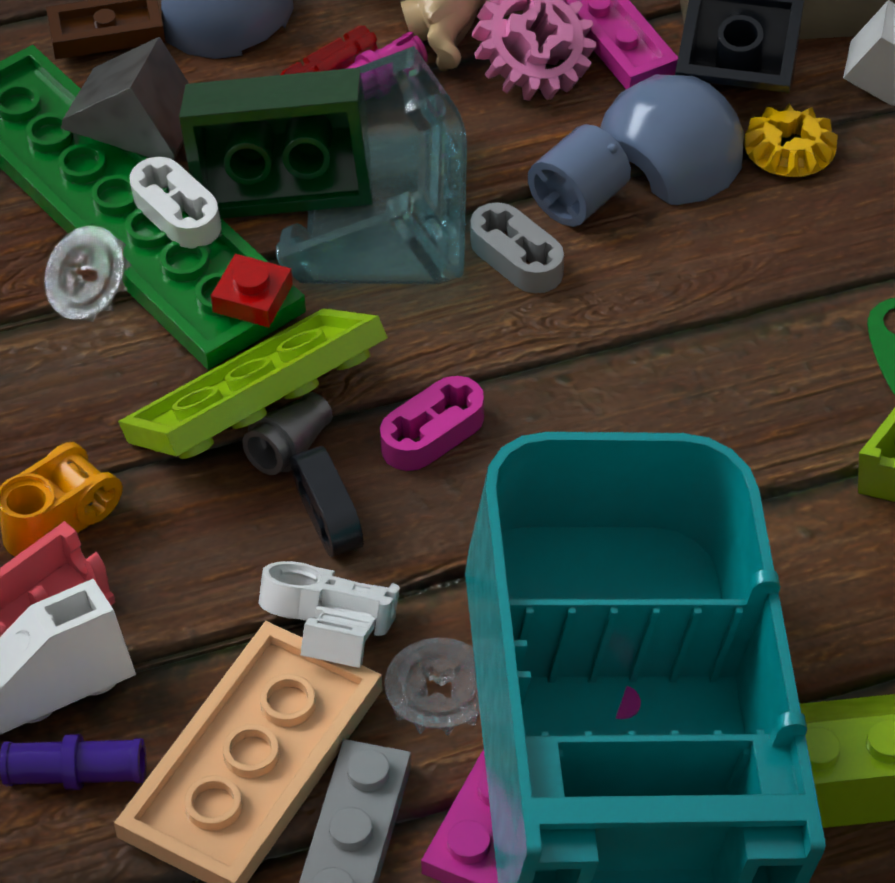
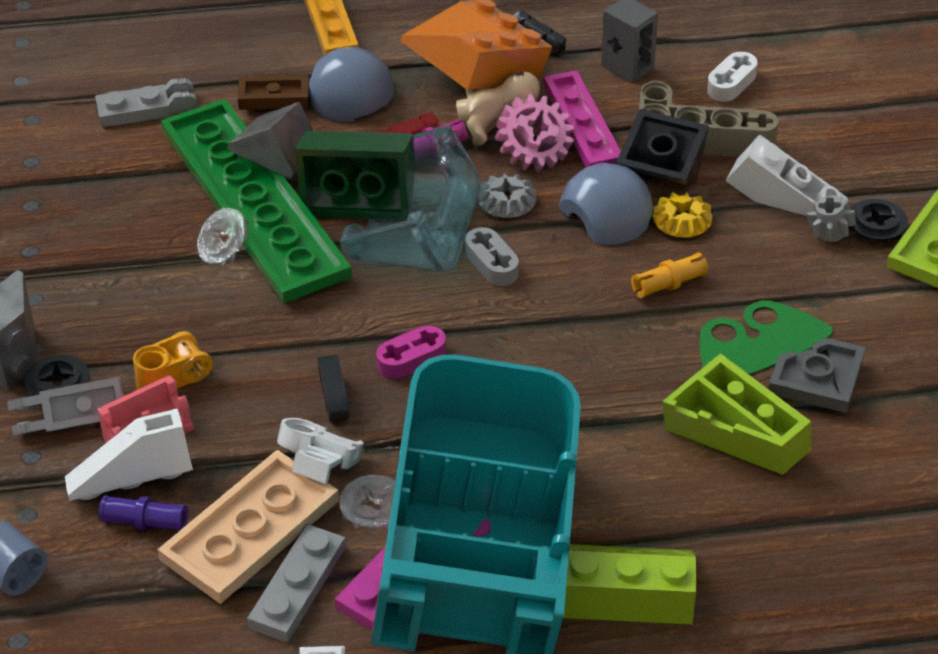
camera: 10 degrees right, 5 degrees down
(184, 195) = (292, 198): white beam -> none
(246, 384) = (295, 315): lime plate -> none
(251, 290) = (318, 258): red plate -> none
(286, 433) = (319, 343): flat silver cone -> none
(499, 157) = (493, 200): none -> light grey gear
(579, 175) = (540, 217): sand blue piece -> none
(799, 241) = (669, 275): none -> light orange pin

